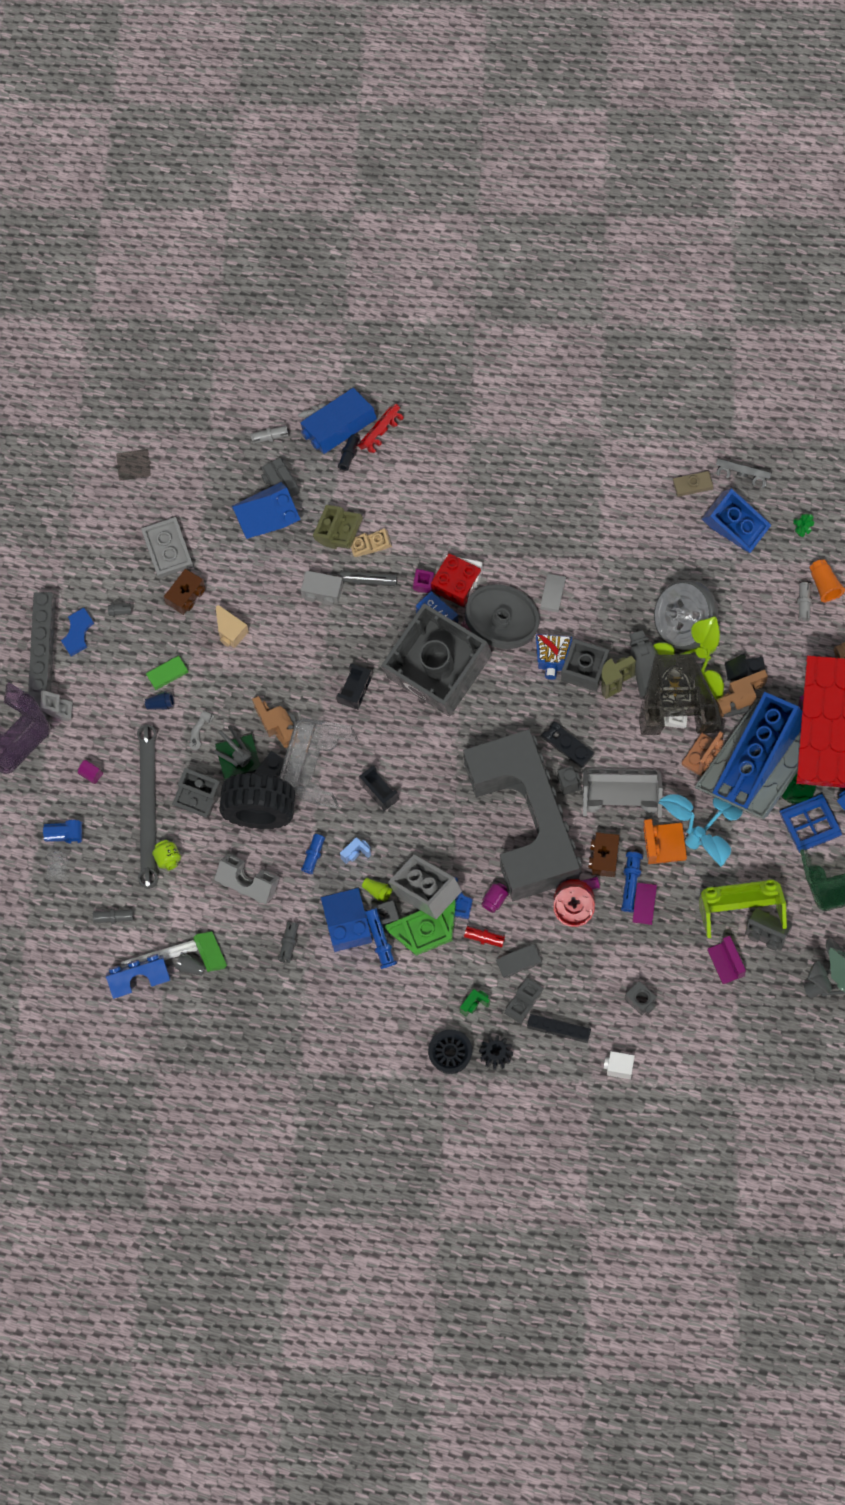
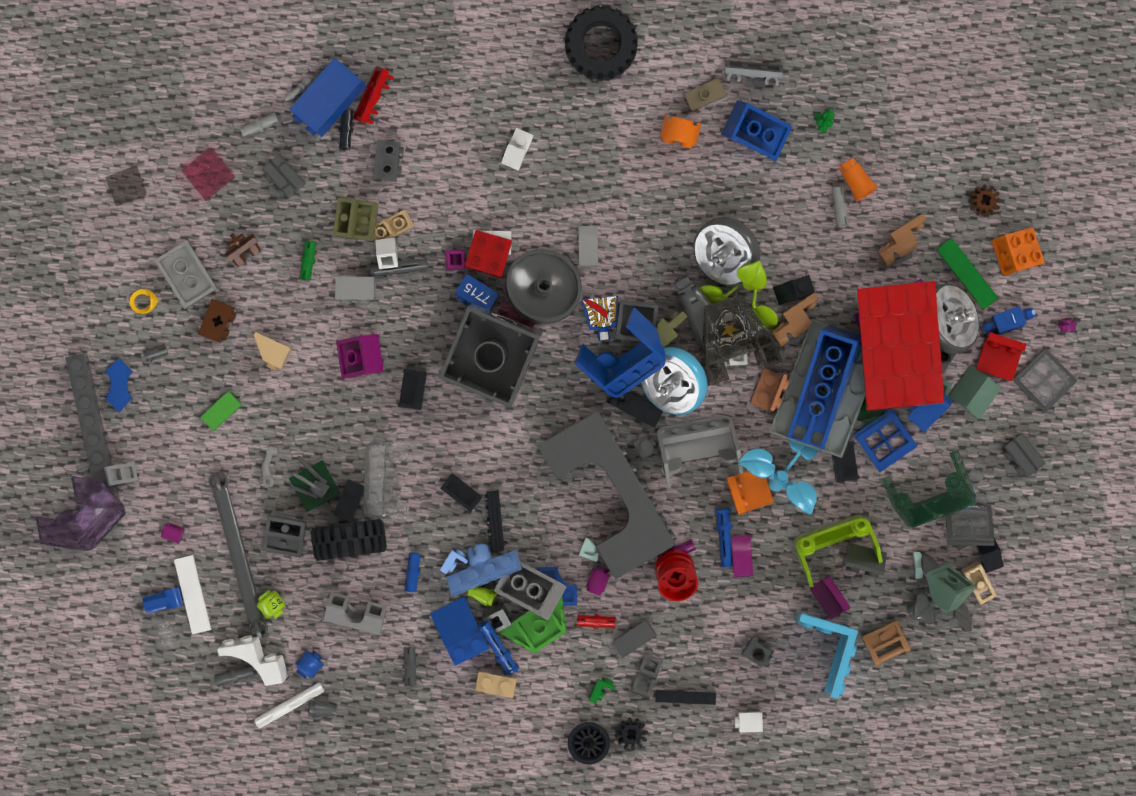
camera: 20 degrees left, 20 degrees up
(93, 833) = (192, 594): none -> white tile
(129, 567) = (154, 300): none -> yellow piece
(150, 913) = (248, 648): none -> white arch
(153, 968) = (286, 722): blue arch -> none
(161, 701) = (222, 444): dark blue cone -> none
(189, 919) = (309, 664): none -> blue piece
(210, 951) = (337, 691): bright green tile -> none
(211, 466) = (208, 174): none -> clear pink plate
(233, 532) = (235, 254): none -> reddish brown hips
(266, 511) = (279, 218): blue slope -> none
(275, 721) = (345, 442): medium nougat plate -> none
(284, 556) = (307, 260): none -> green pin
(311, 647) = (359, 356): none -> magenta slope
(359, 560) = (386, 253): none -> white brick
(369, 975) = (496, 684): none -> tan brick
(380, 484) = (387, 160): none -> dark grey brick
(382, 861) = (483, 569): none -> medium blue plate
(405, 822) = (494, 520): none -> black piece
(492, 869) = (589, 550): none -> light aqua tile
(504, 498) = (517, 149): none -> white slope
(557, 709) = (622, 374): none -> blue windscreen
(597, 439) = (601, 17): none -> black tyre
(604, 865) = (698, 504): reddish brown brick -> none
(622, 721) = (667, 389): none -> flat silver wheel
(662, 505) = (680, 130): none -> orange brick
(720, 978) = (843, 652): none -> medium azure bracket
(766, 834) = (846, 467): none -> black panel
(775, 1010) = (884, 637): none -> medium nougat plate
(822, 952) = (917, 556): none -> light aqua tile

